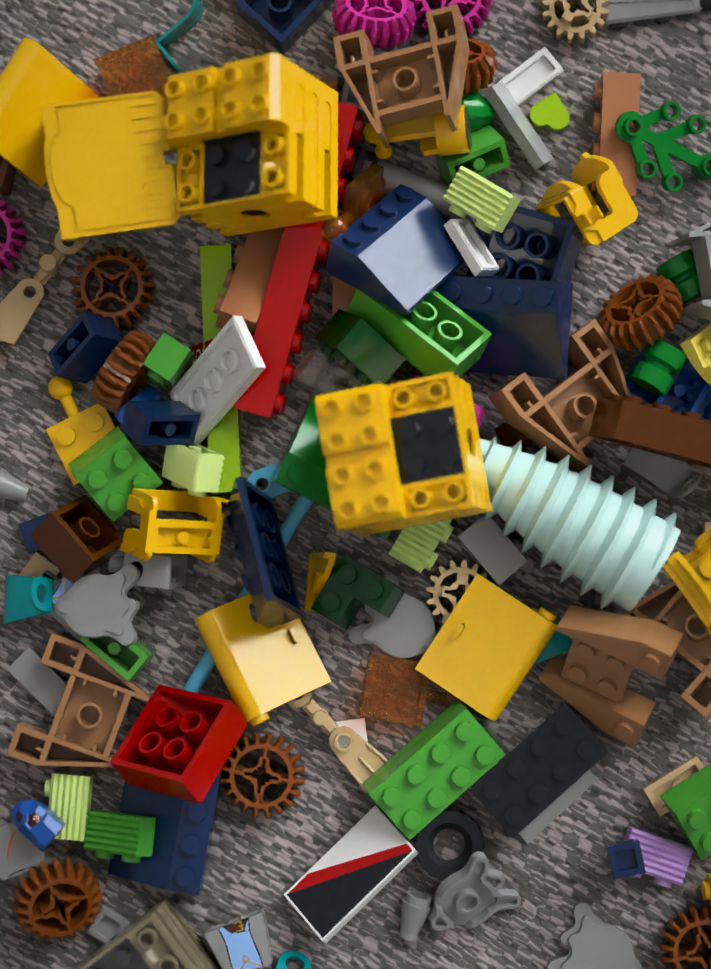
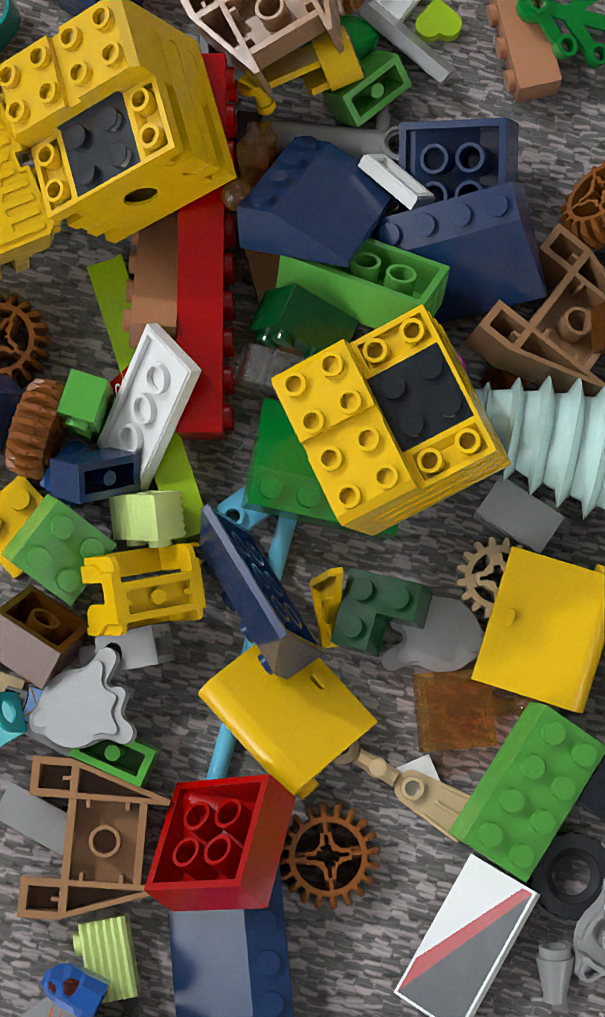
camera: 15 degrees left, 5 degrees down
(119, 834) = (179, 975): bright green brick -> none
(417, 544) = (431, 533): yellowish green brick -> none
(481, 200) = (392, 125): yellowish green brick -> none
(583, 207) = (504, 99): yellow animal -> none

